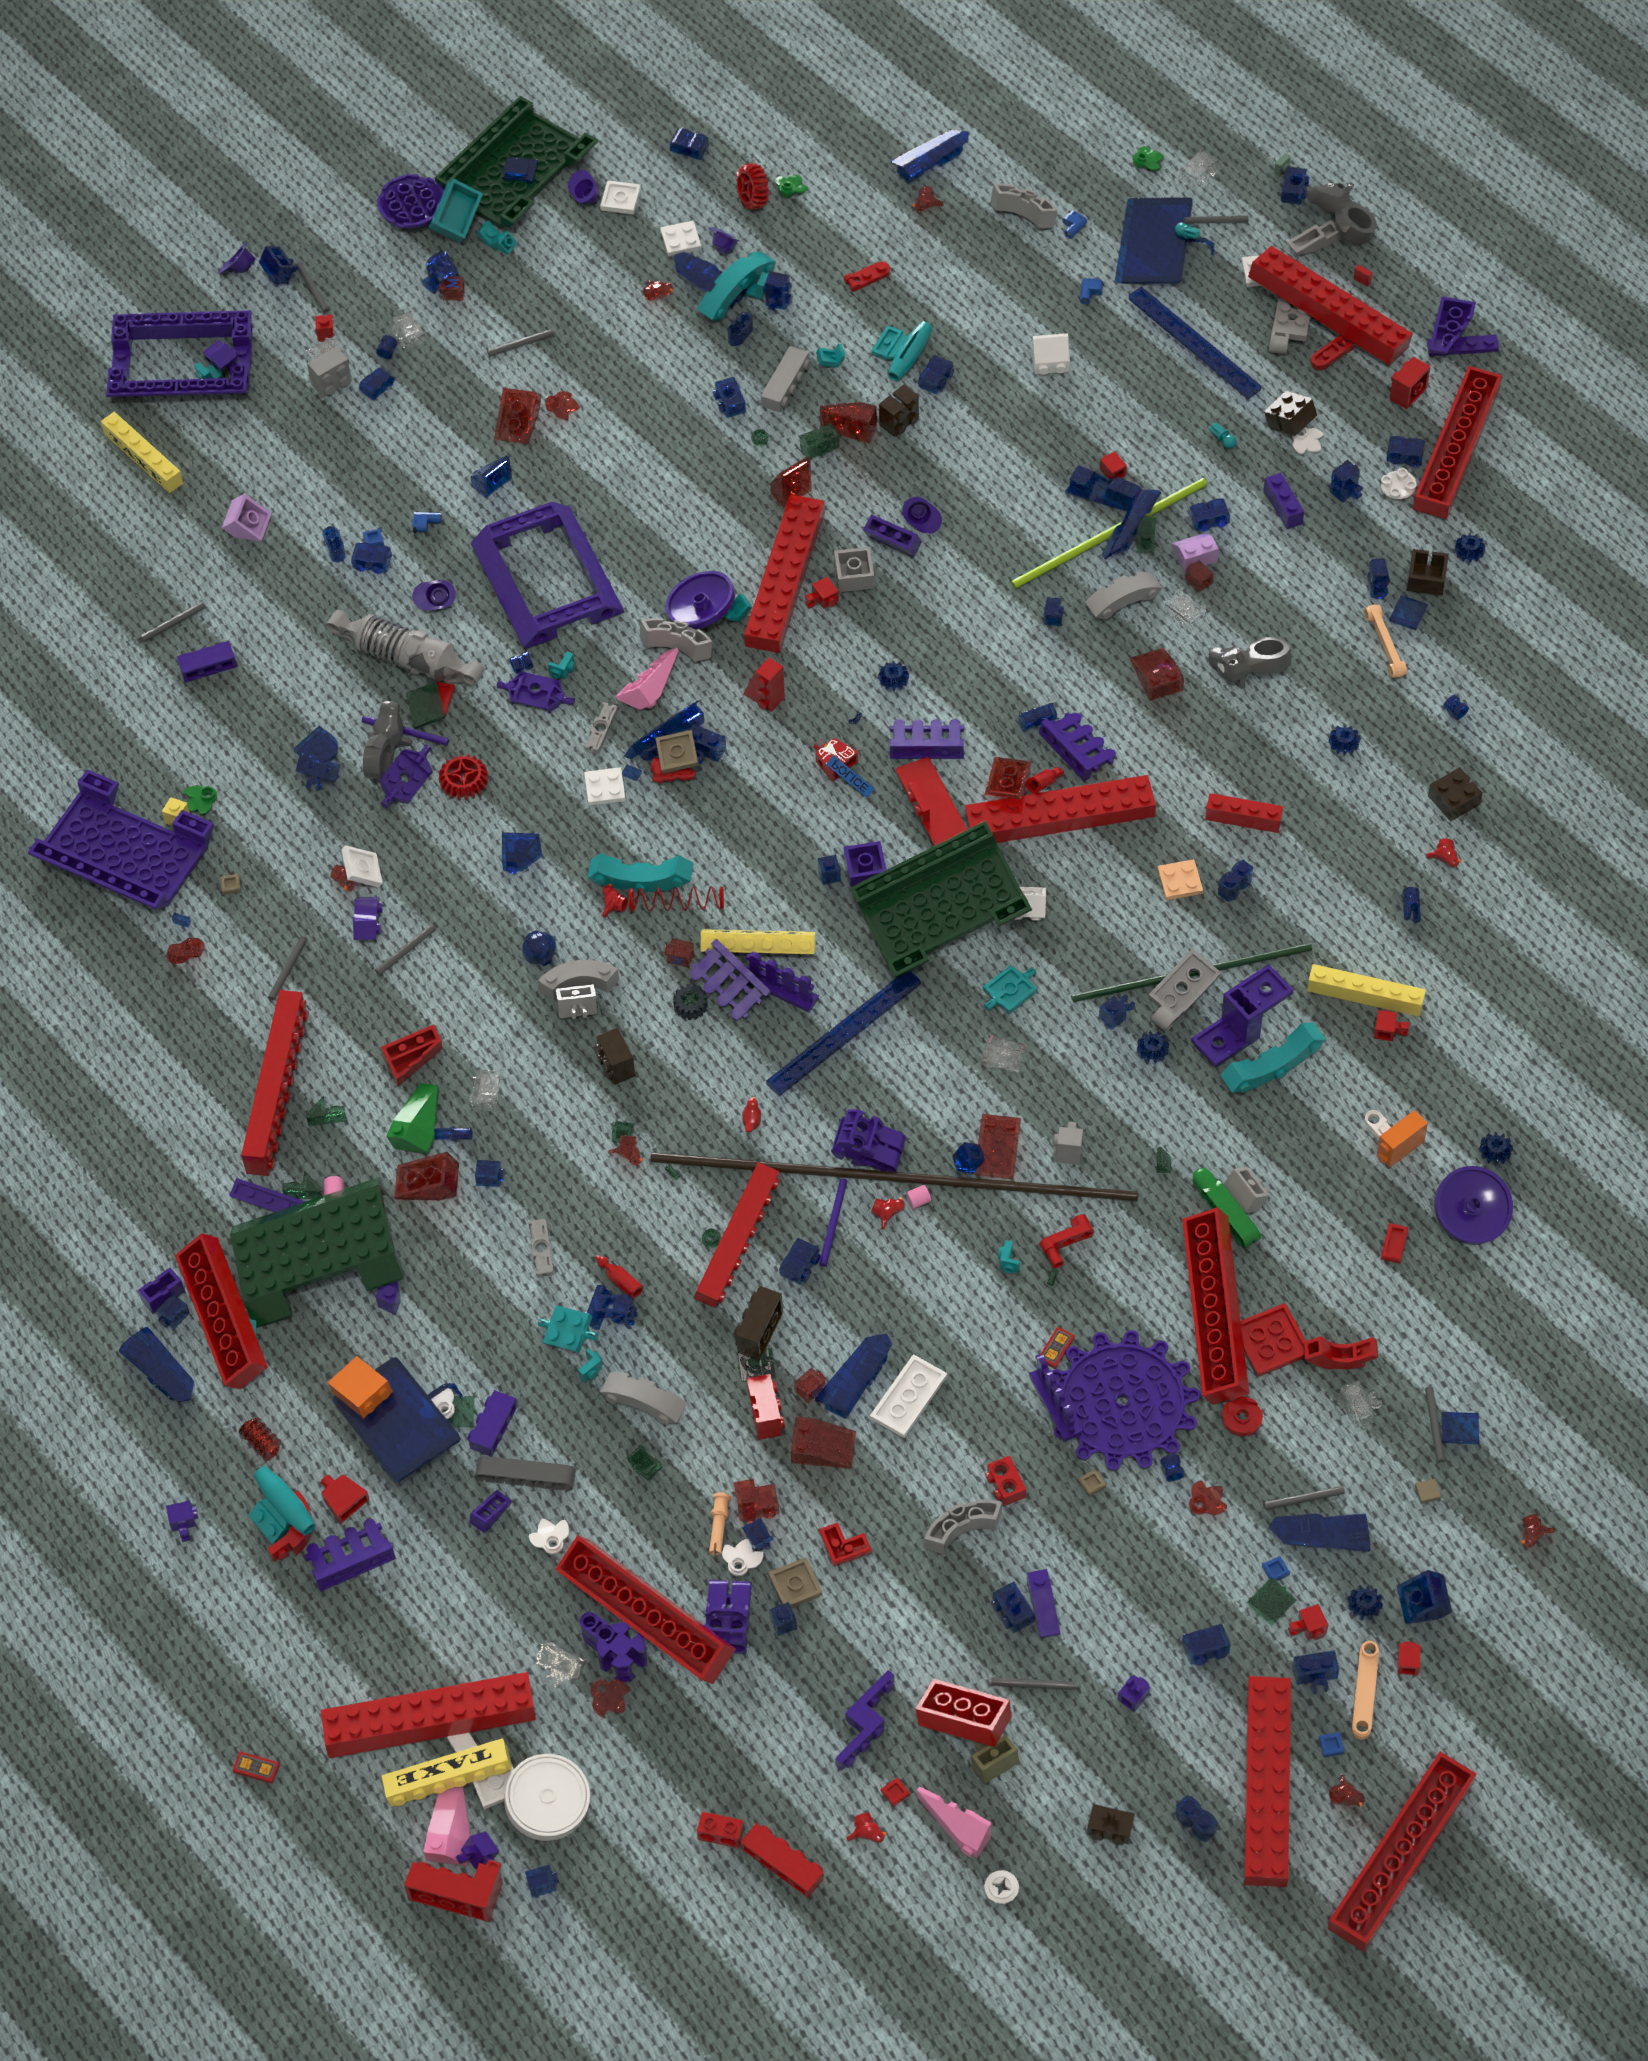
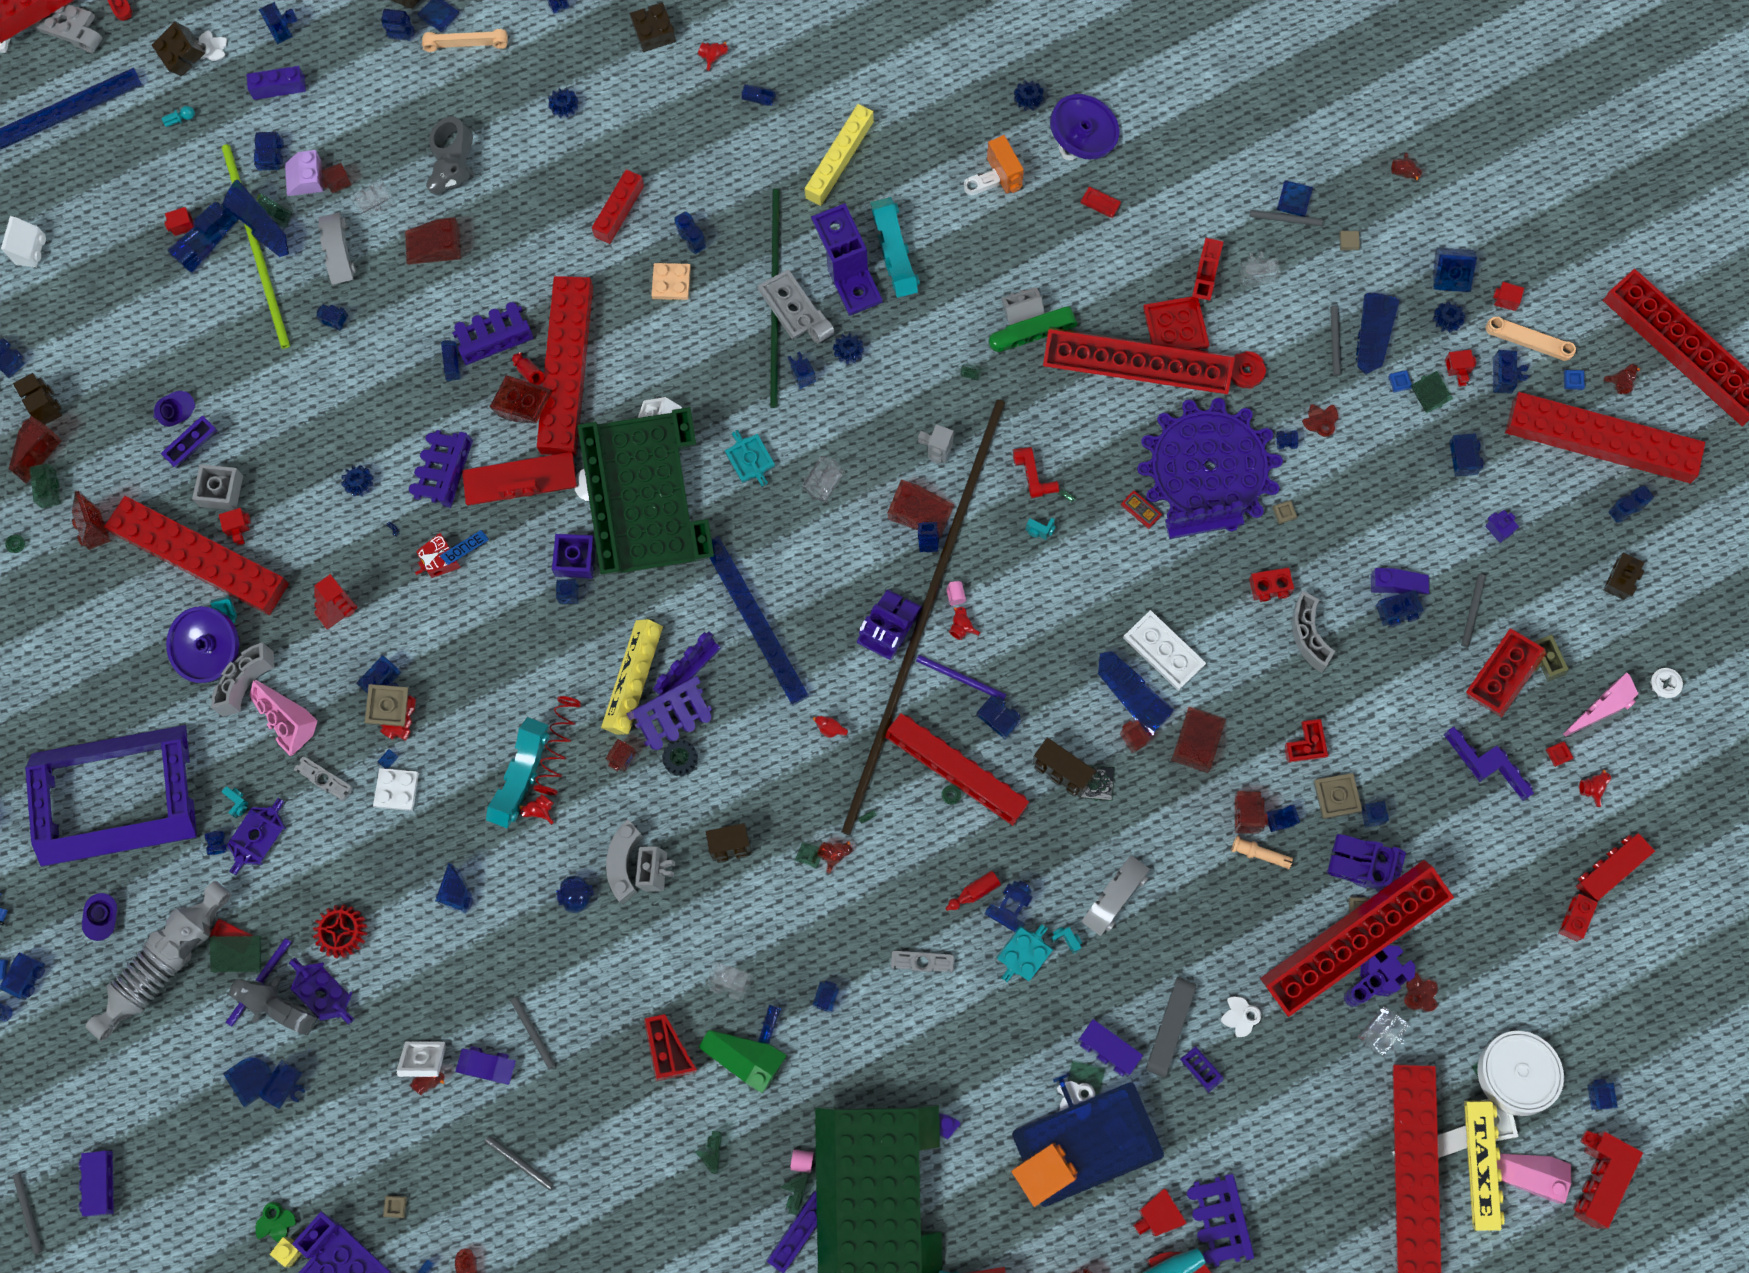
camera: 75 degrees left, 15 degrees up
(274, 1083) = (666, 1201): red brick -> none
(427, 1178) = (816, 1062): clear red slope -> none
(478, 1849) = (1566, 1149): dark purple brick -> none
(643, 1462) = (1185, 909): clear green bracket -> none
(647, 747) = (347, 689): clear blue panel -> none
(742, 1555) = (1297, 837): white plate -> none
(765, 1406) = (1149, 782): wedge -> none
(1387, 1026) = (880, 147): red brick -> none

